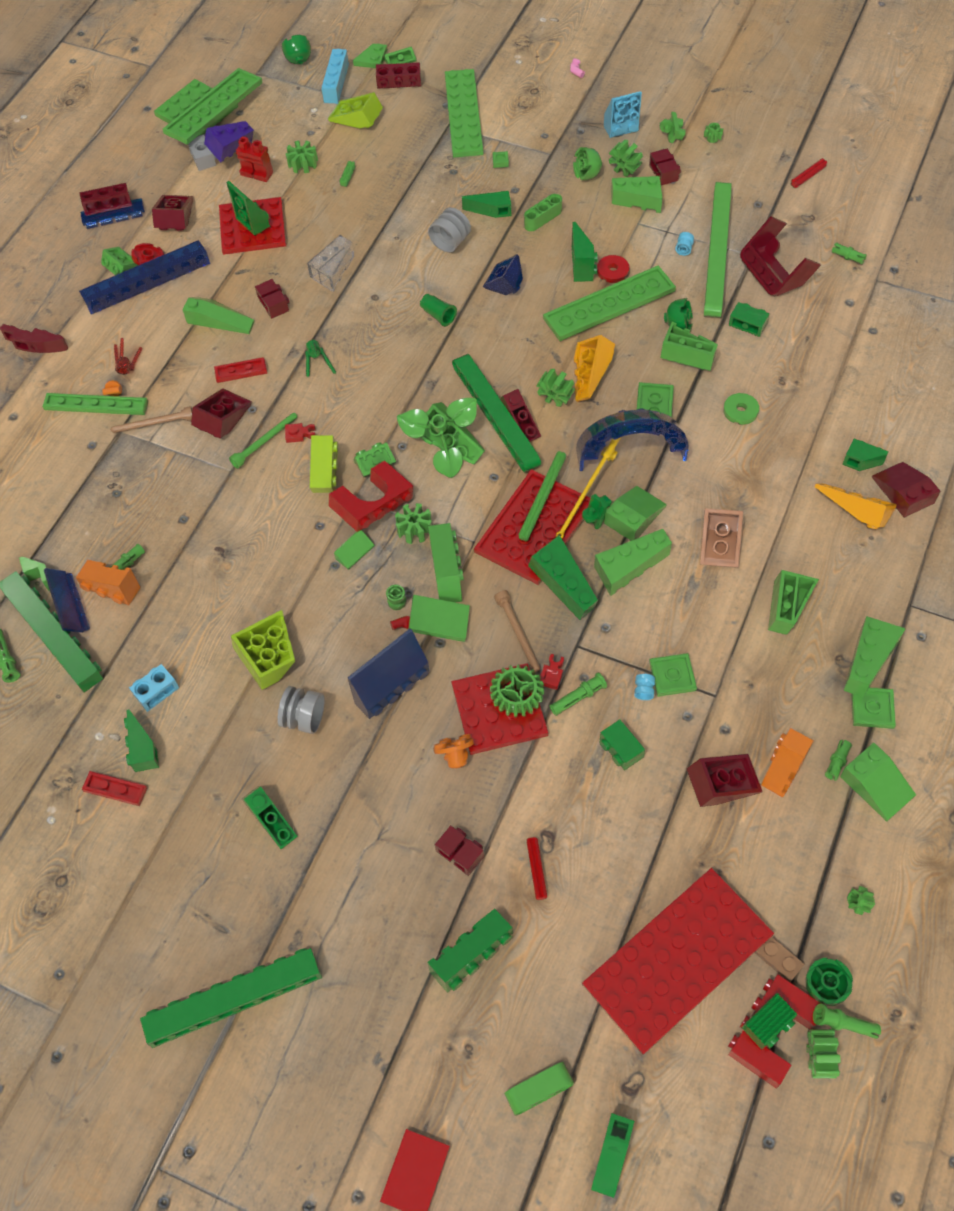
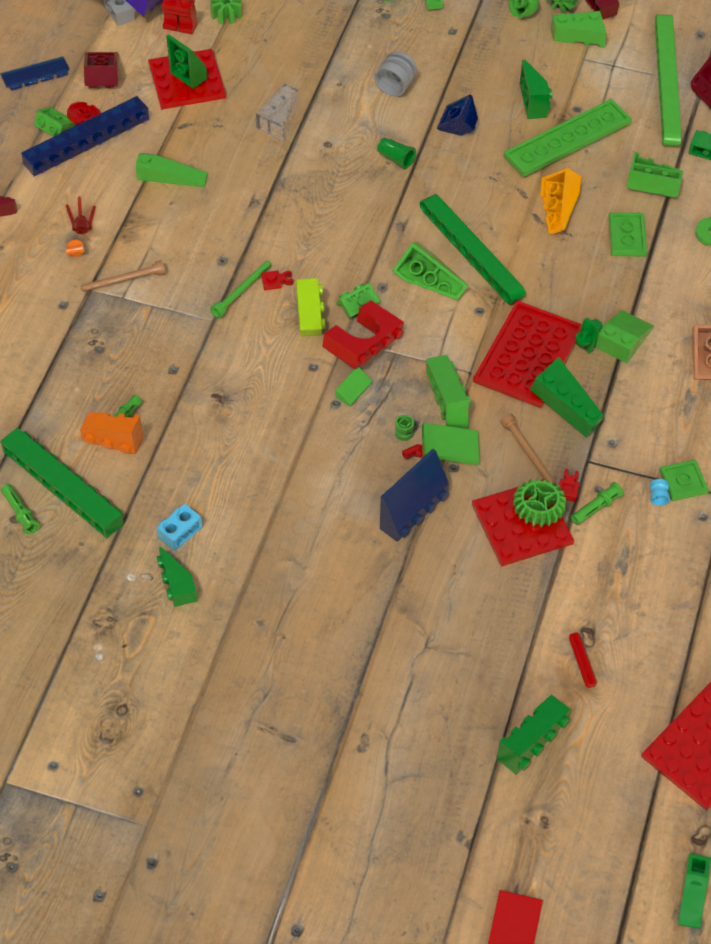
camera: 10 degrees left, 5 degrees down
(33, 570) = (36, 426): bright green slope -> none
(66, 600) = (74, 452): clear blue windscreen -> none
(95, 404) = (59, 264): bright green tile -> none
(105, 199) = (27, 59): dark red brick -> none
(114, 788) = (157, 622): red tile -> none
(219, 413) = (191, 265): dark red slope -> none
(230, 998) = (312, 794): green brick -> none
(240, 370) = (203, 222): red tile -> none
(265, 649) = (285, 484): lime wedge -> none
(269, 817) = (317, 634): green slope -> none
(271, 296) = (222, 146): dark red piece -> none
(301, 709) = (332, 535): light grey wheel -> none
(314, 351) = (277, 199): green plant -> none
(347, 173) = (276, 22): bright green axle -> none
(413, 523) = (409, 358): bright green gear -> none
(415, 422) = (442, 249): bright green plant -> none
(454, 750) = (488, 562): orange plate -> none
(456, 847) = (513, 649): dark red piece -> none
(489, 204) = (431, 46): green slope -> none
(517, 408) = (494, 242): dark red slope -> none
(539, 1088) = (617, 844): bright green beam -> none
(542, 496) = (533, 324): bright green axle -> none
(543, 212) = (486, 52): bright green beam -> none
(555, 387) = (529, 221): bright green gear -> none
(609, 453) = (590, 282): yellow piece -> none
(613, 261) = (566, 97): red tile -> none
(621, 745) = (646, 545): green brick -> none
(627, 423) = (578, 265): clear blue windscreen -> none
(631, 559) = (628, 378): bright green wedge -> none
(680, 313) = (639, 142): green cylinder -> none
(684, 243) = (634, 76): medium azure wheel -> none

